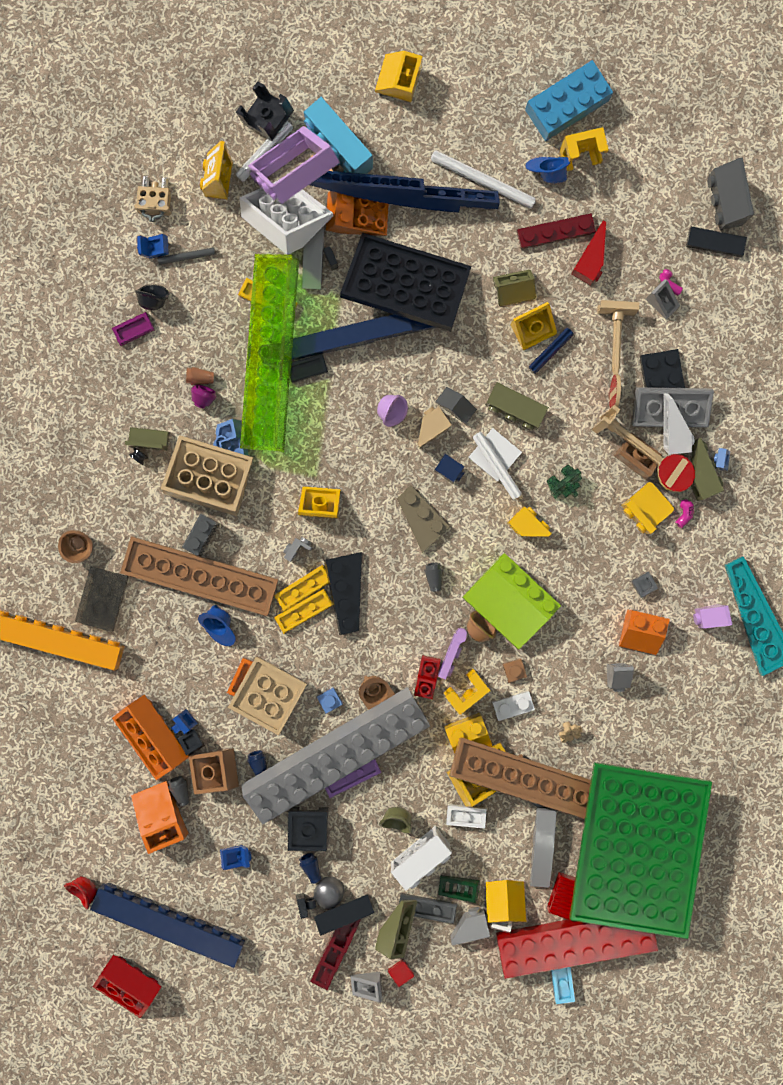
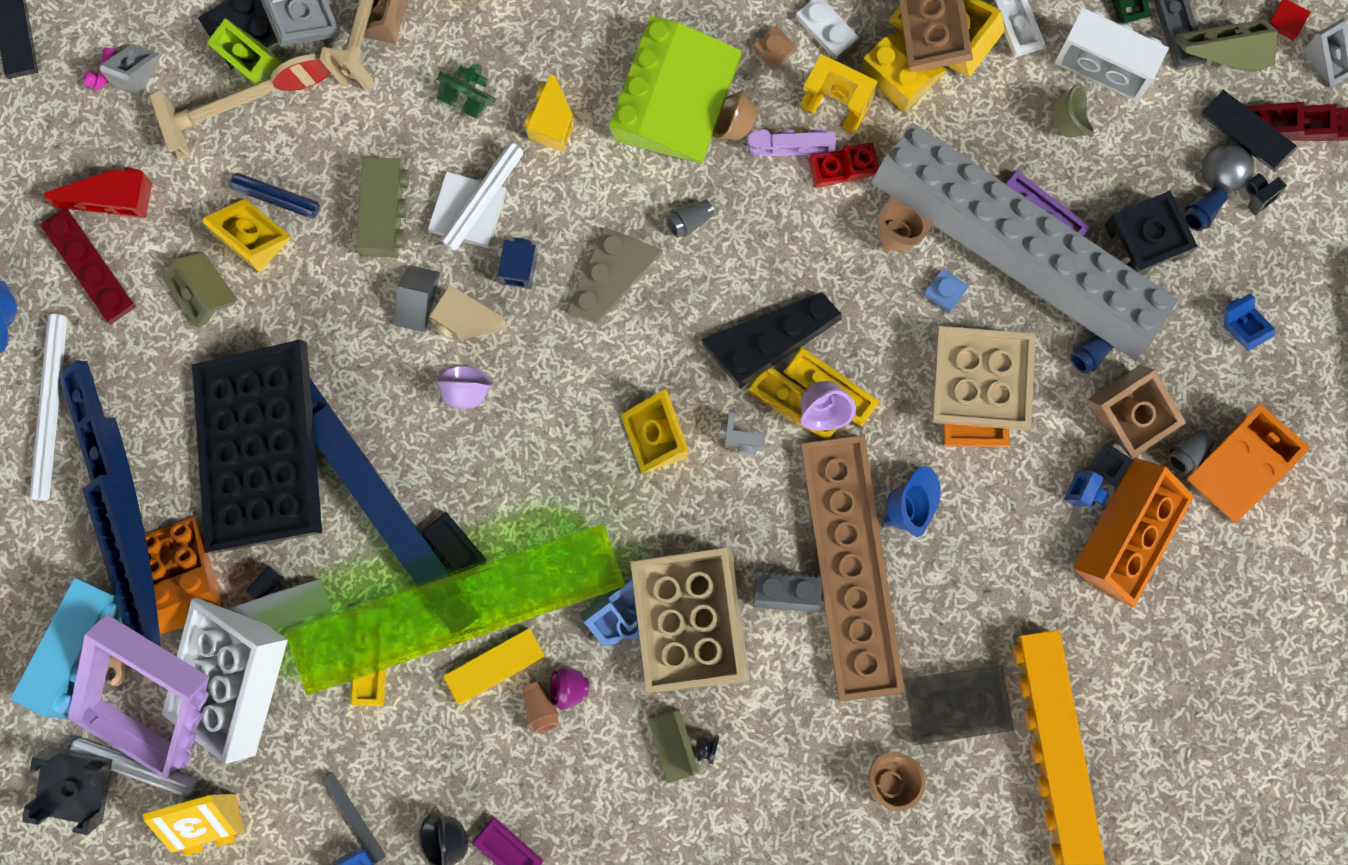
camera: 110 degrees left, 10 degrees down
(232, 362) = (494, 666): none -> yellow tile
(290, 601) = (826, 407): none -> lavender helmet
(640, 366) = (244, 52): none -> lime slope

